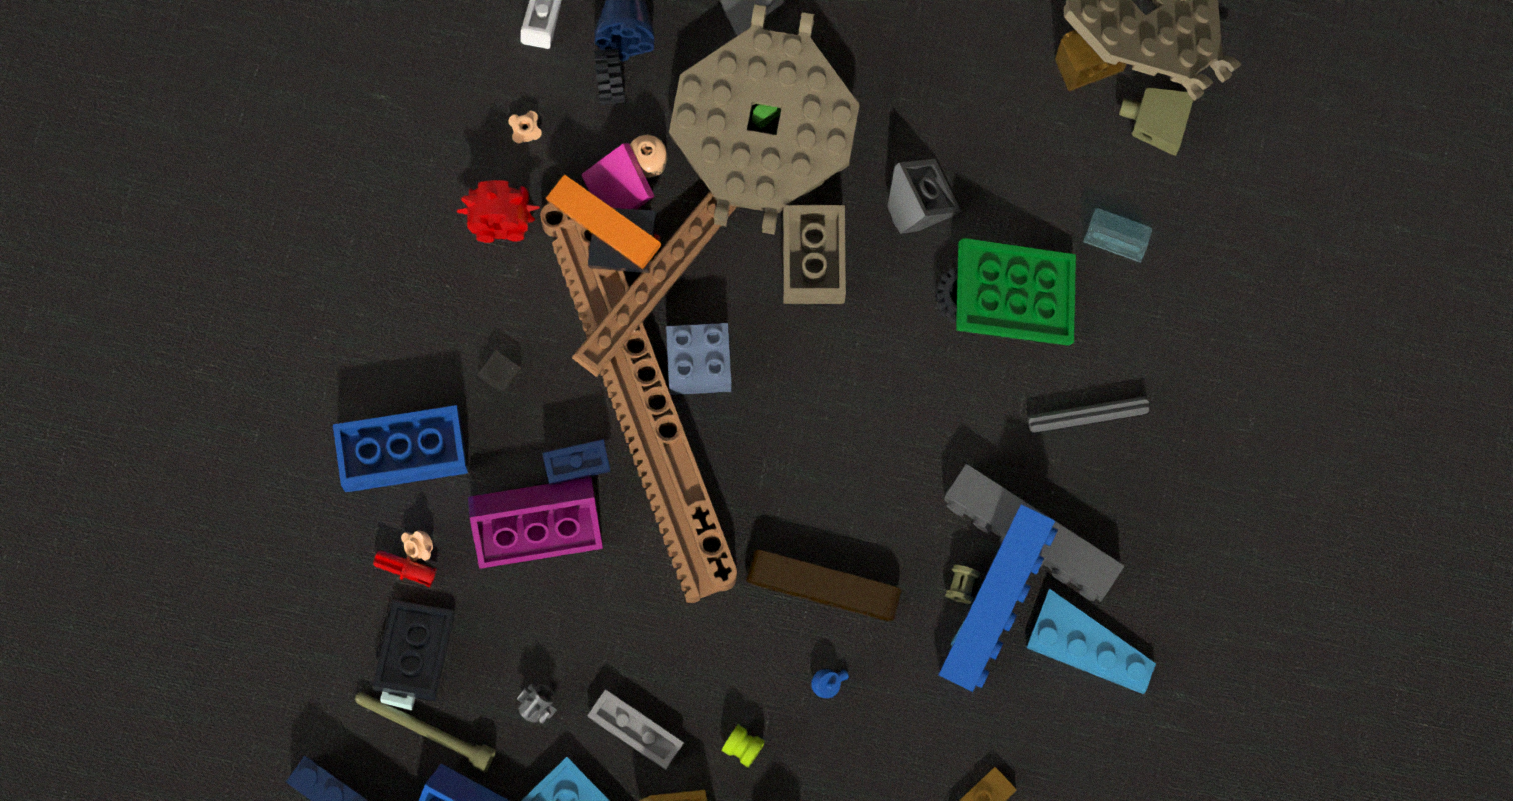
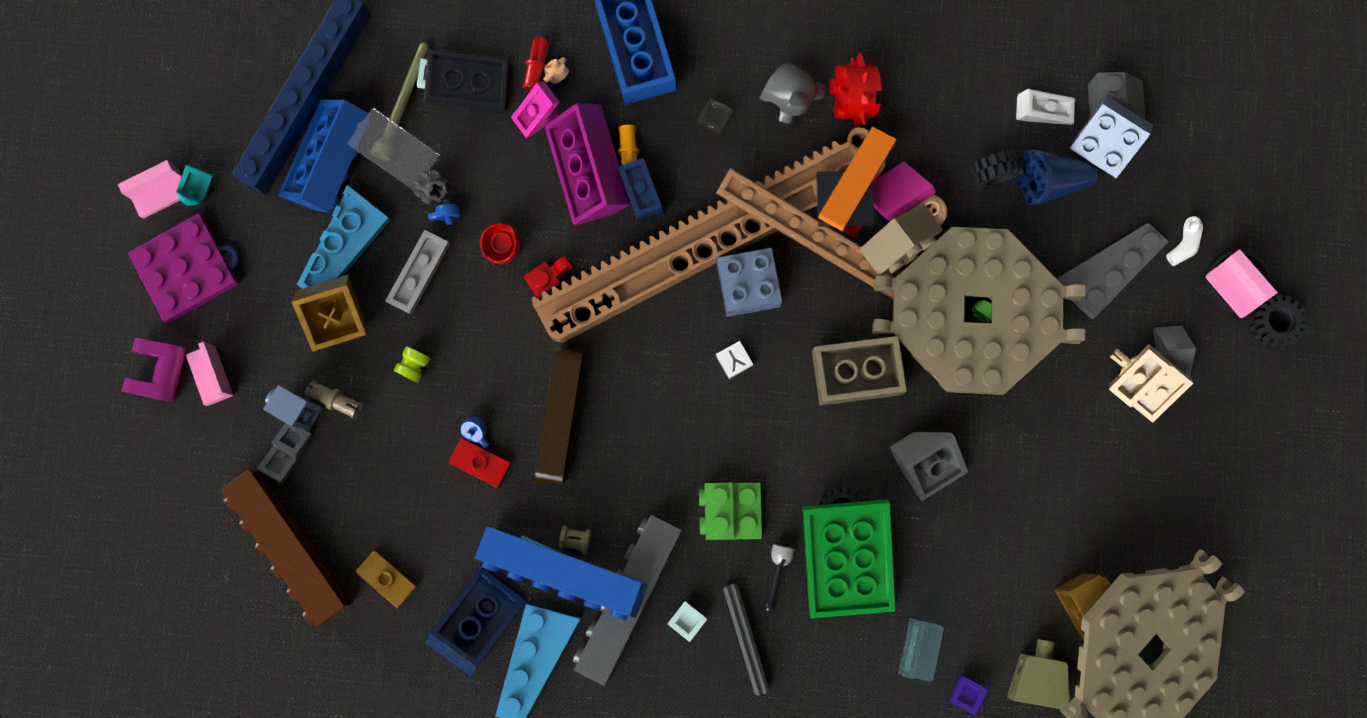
camera: 90 degrees right, 5 degrees up
(463, 572) = (536, 110): none -> dark pink slope
(485, 741) = (392, 148): none -> clear piece
(487, 281) = (792, 91): none -> dark grey piece
(521, 474) = (627, 144): none -> light orange axle
(531, 133) = (934, 113): light nougat plate -> none
(569, 691) = (445, 212): none -> blue piece
(616, 629) = (500, 243): none -> red hair
(661, 586) = (545, 277): none -> red plate
(678, 186) = (901, 240): none -> dark tan brick
(782, 388) = (734, 360): none -> white tile
(864, 682) = (479, 463): none -> red plate
(949, 412) = (731, 511): none -> bright green plate
(1004, 365) = (781, 556): none -> hinge
(1042, 703) = (475, 621): none -> dark blue slope
(1063, 473) = (687, 621): none -> light aqua plate
(1169, 193) = (968, 695): none -> dark purple plate

